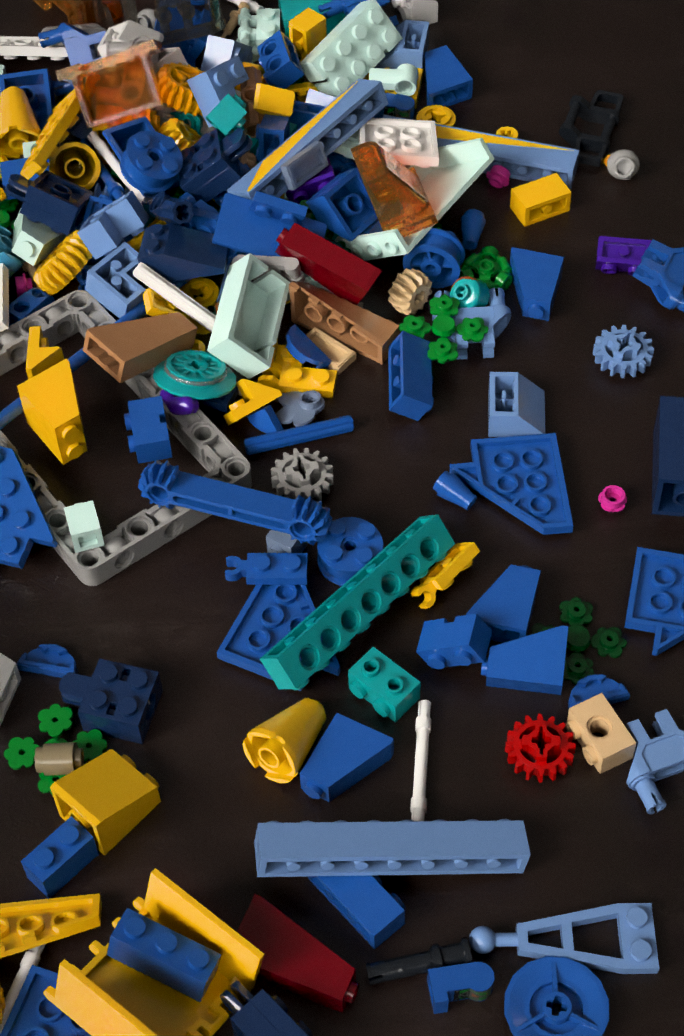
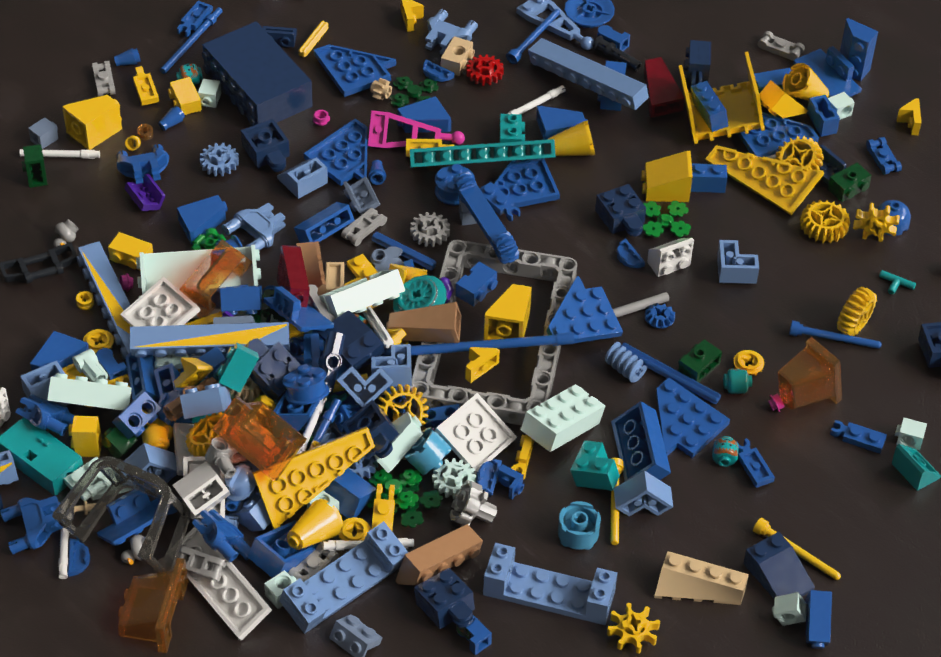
camera: 135 degrees left, 5 degrees down
(58, 758) = (671, 204): dark tan brick -> none
(84, 526) = (558, 267): light aqua brick -> none
(304, 349) = (349, 274): blue tile -> none
(376, 421) = (363, 226): none -> light grey plate
(410, 291) = (268, 257): tan gear -> none
(427, 443) = (361, 195): none -> sand blue bracket
(443, 327) = (280, 223): green plant -> none
(454, 642) = (468, 115): blue brick -> none
(470, 292) = (243, 230): teal head -> none
(520, 528) = (379, 126): none -> dark pink plate
(529, 662) = (448, 91): blue slope -> none
(540, 814) = (514, 55): none -> blue piece
(600, 401) = (266, 145): none -> dark blue brick
(606, 591) = (381, 89): none -> tan gear

